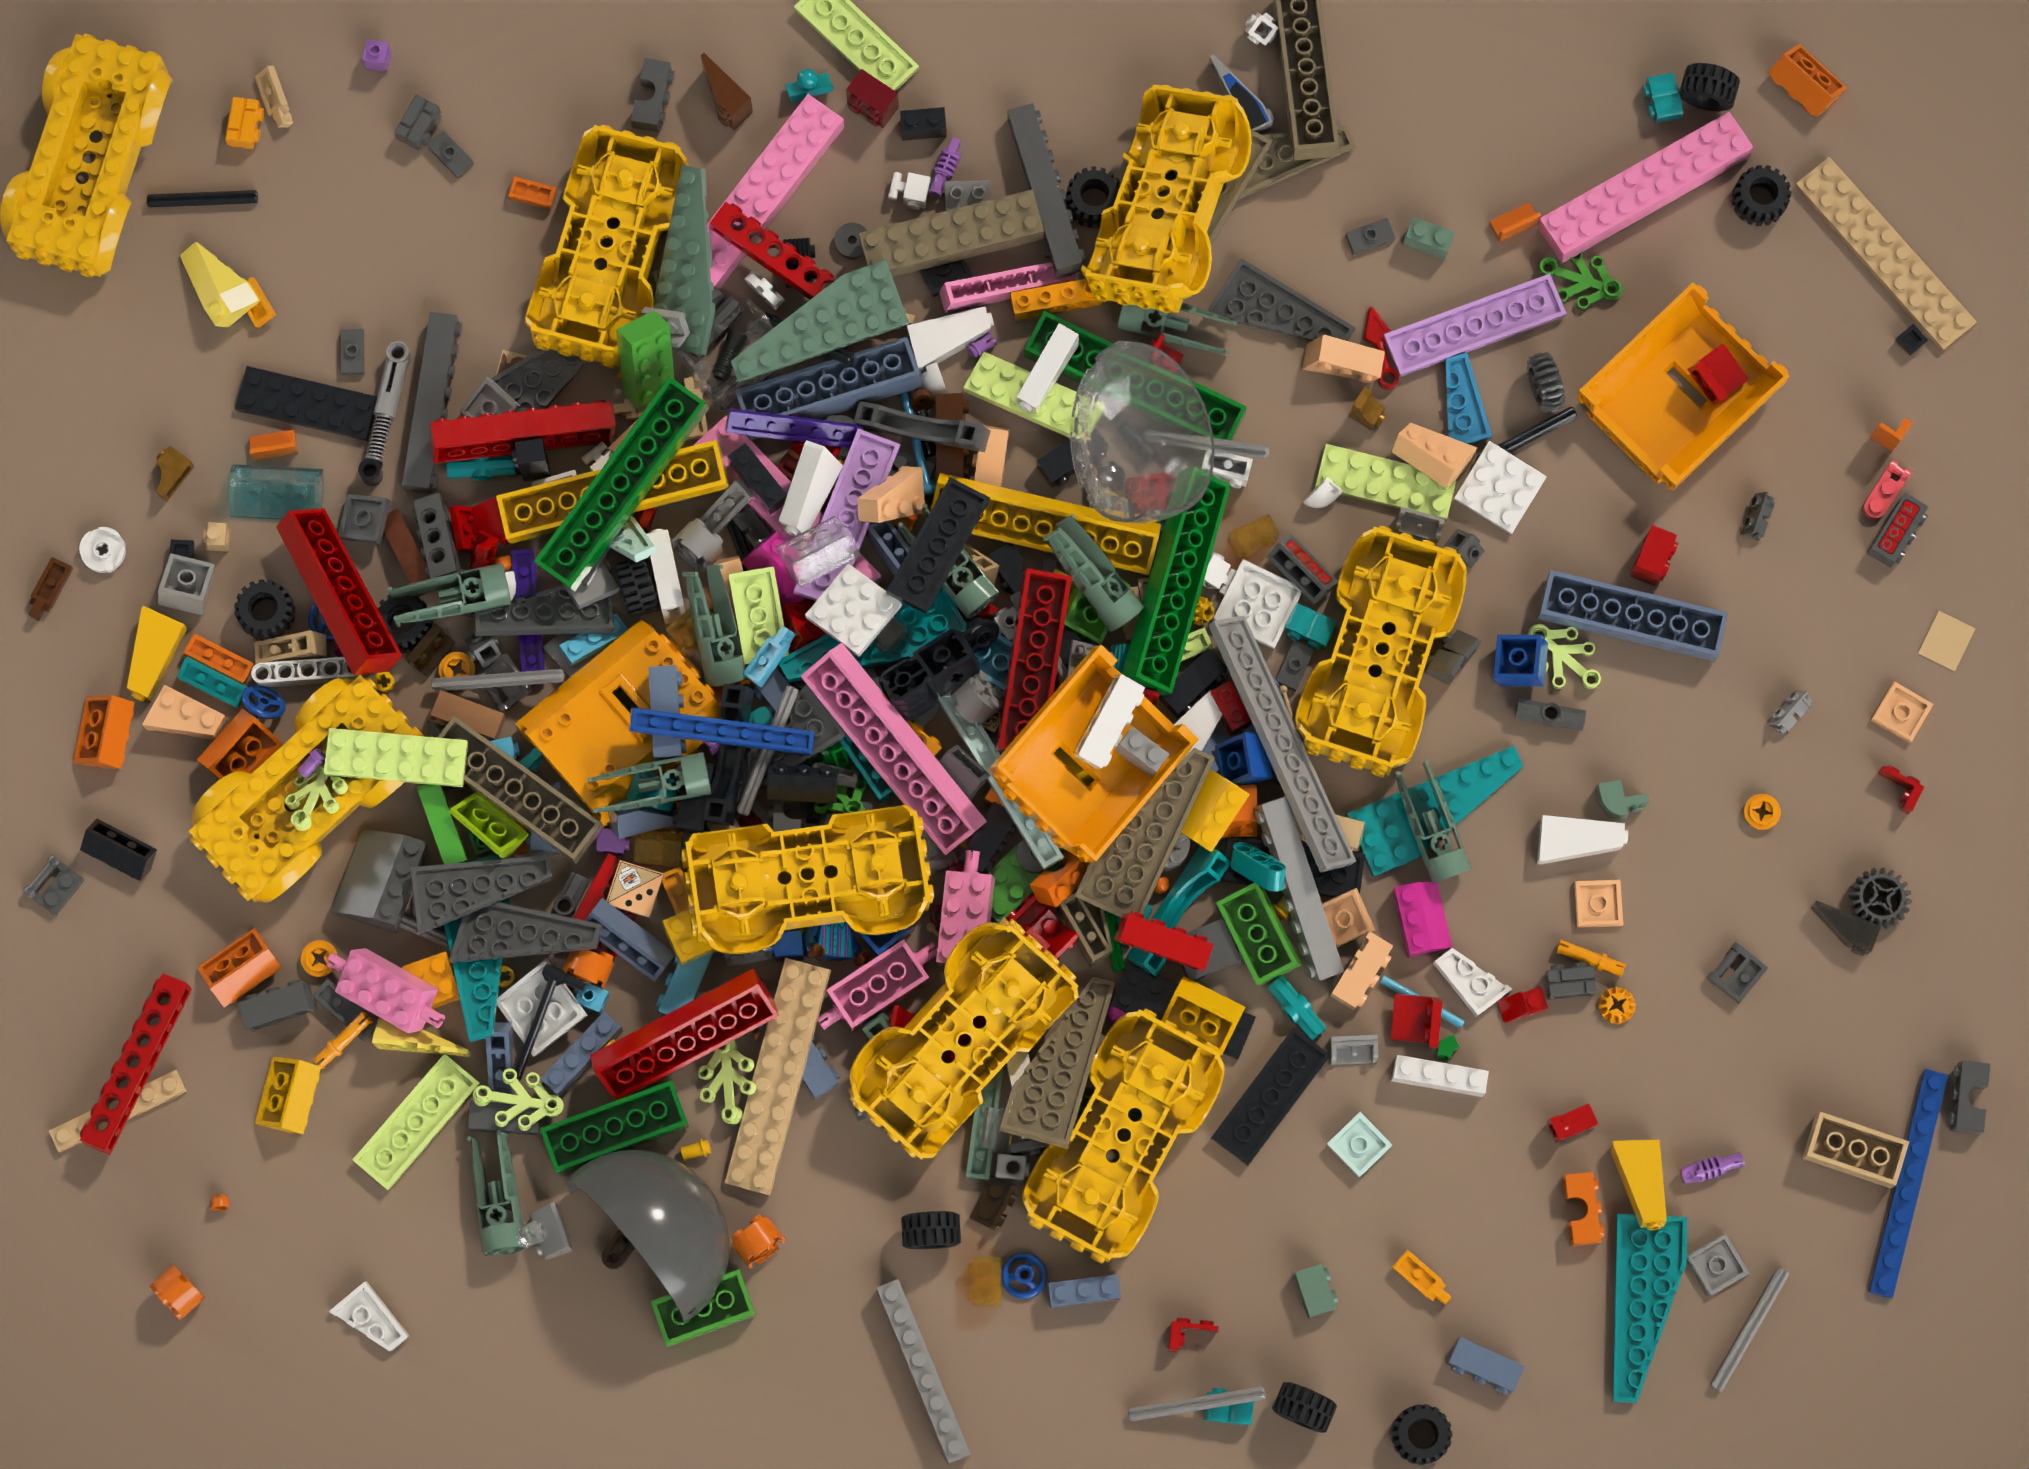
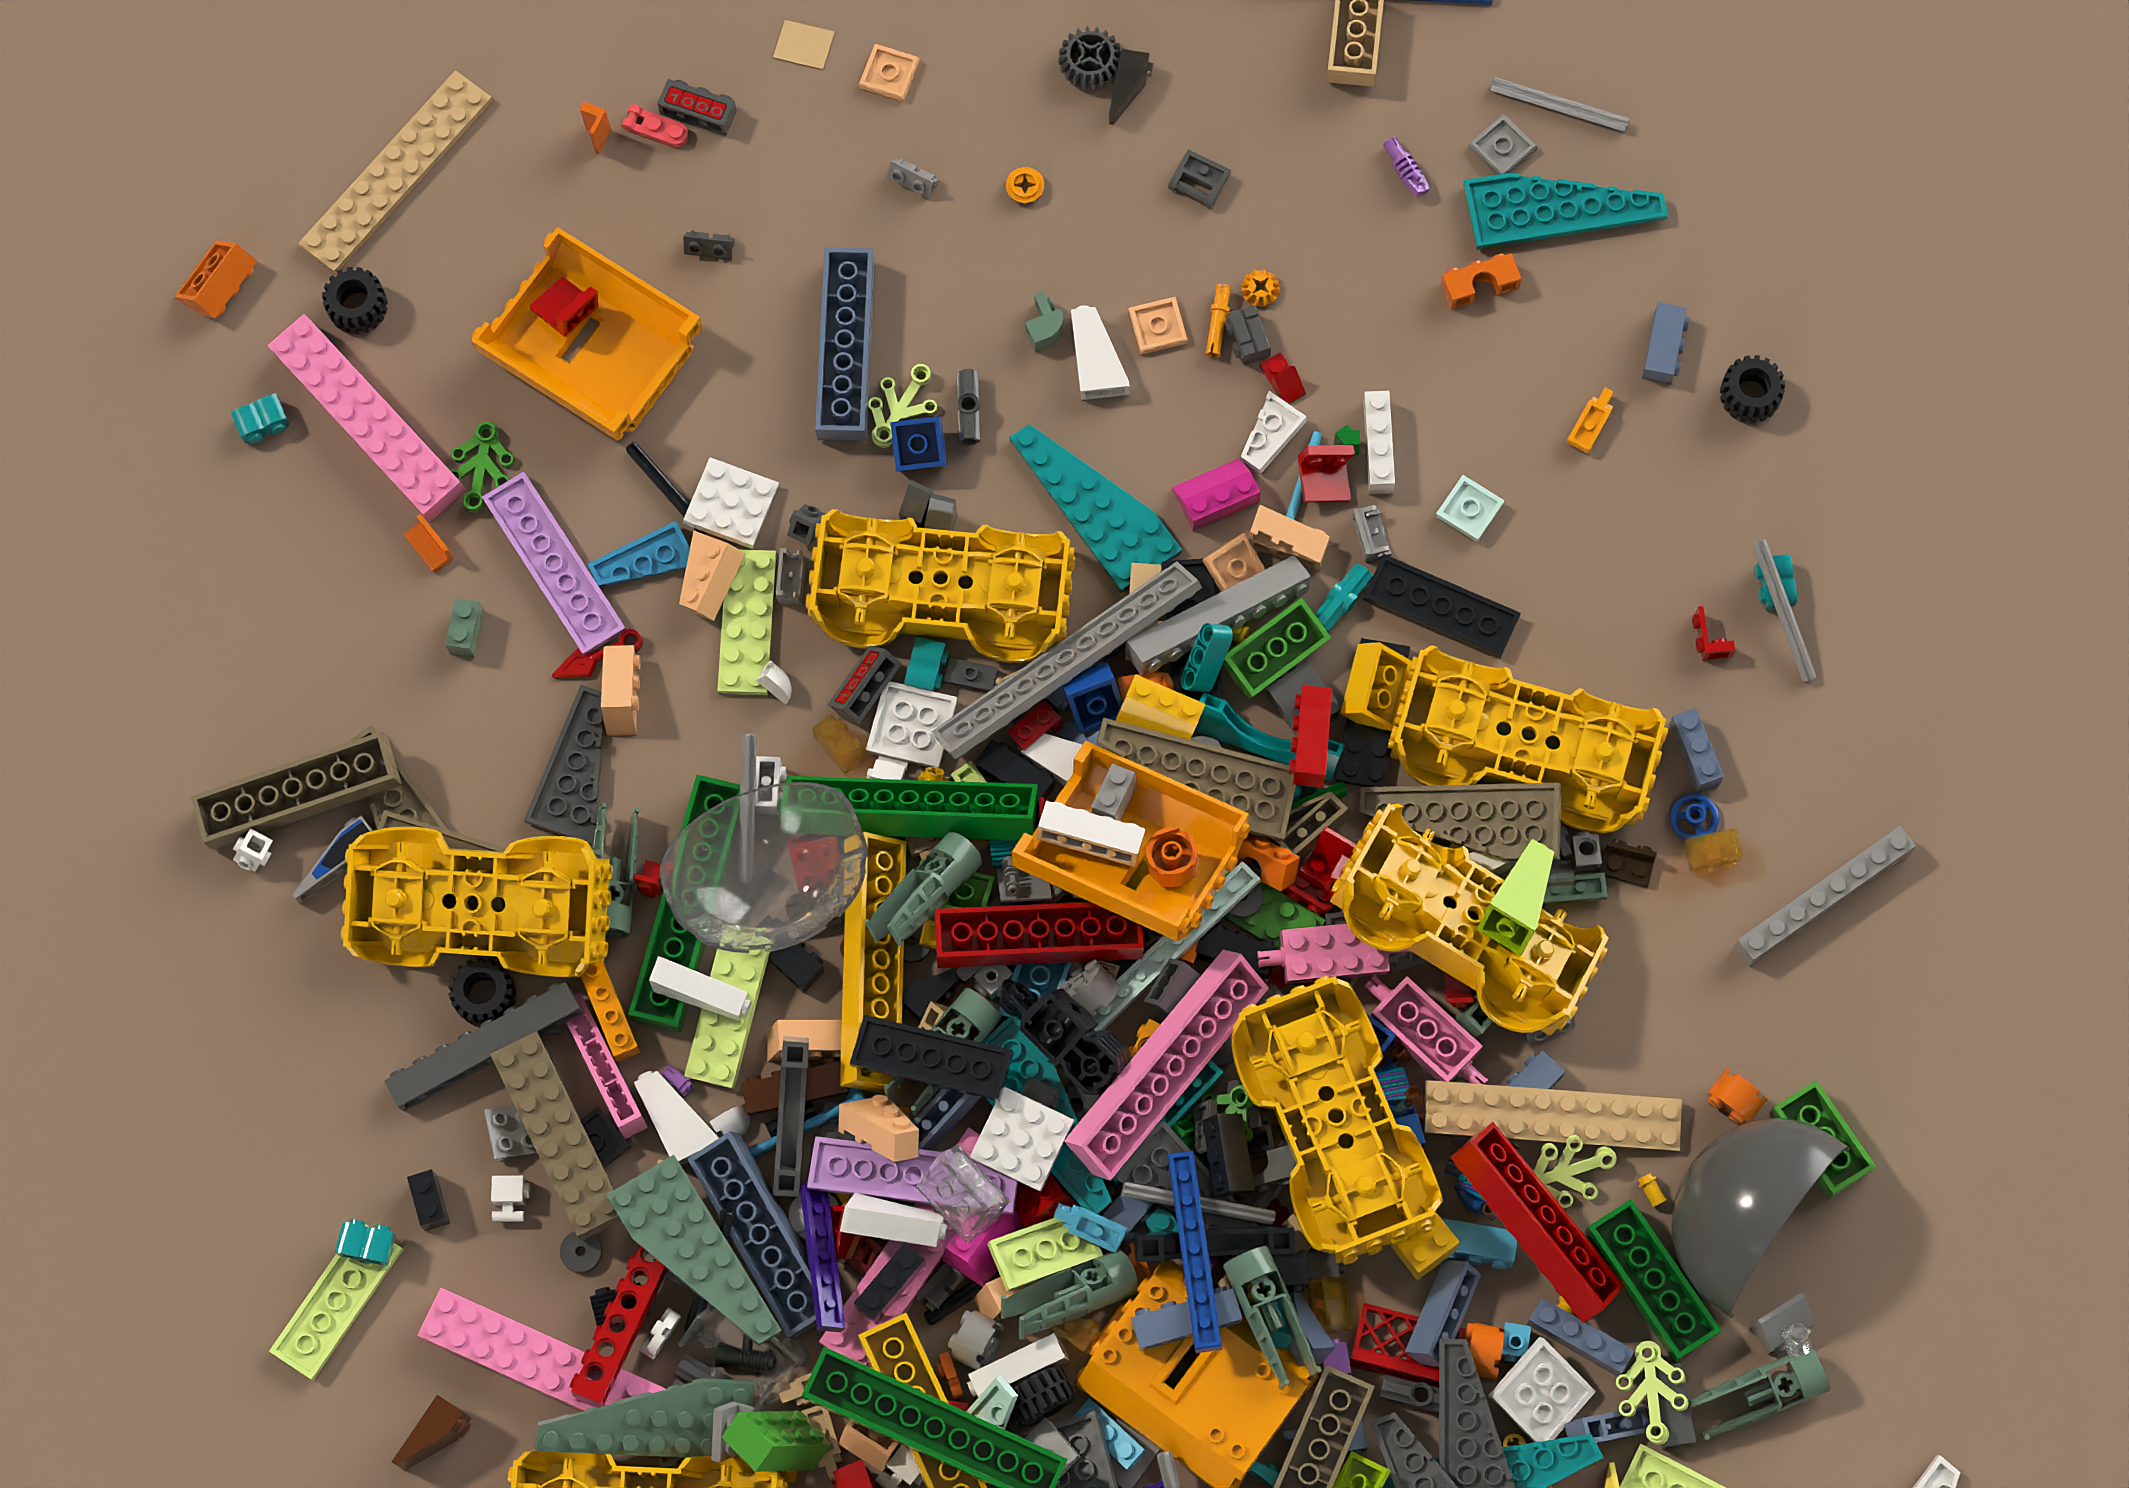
camera: 95 degrees left, 5 degrees down
(554, 977) = (1509, 1380): black bar -> none
(618, 1247) = (1778, 1249): dark brown plate -> none
(635, 889) = (1383, 1320): tile -> none
(675, 520) = (947, 1370): none -> orange plate
(676, 890) = (1373, 1273): light orange plate -> none
(727, 507) = (926, 1316): light grey plate -> none
(808, 83) = (404, 1341): teal tile -> none
(872, 99) = (410, 1261): dark red brick -> none
(896, 64) = (365, 1243): none -> teal brick
(921, 400) = (754, 1131): reddish brown tile -> none
(931, 1230) = (1677, 916): black tyre -> none
(945, 167) = (474, 1165): medium lavender hinge -> none
(963, 1075) = (1519, 901): none -> slope
(1064, 797) = (1185, 860): none -> orange brick
(1114, 1014) = (1395, 778): magenta hinge -> none
(1304, 1407) = (1759, 503): black tyre -> none
(1315, 1290) = (1633, 521): sand green brick -> none
(1367, 410) = (672, 653): pearl gold arch -> none
(1370, 236) = (471, 691): dark grey plate -> none
(1446, 862) = (1151, 472): sand green piece -> none
(1546, 382) = (606, 475): dark grey gear -> none
(1572, 1122) = (1395, 308): red bracket -> none
(1642, 1177) = (1438, 225): yellow slope -> none
(1652, 558) = (776, 333): red brick -> none
(1709, 87) = (243, 369): black tyre -> none
(1910, 797) = (976, 45): red bracket -> none
(1911, 339) = (486, 129): black plate -> none

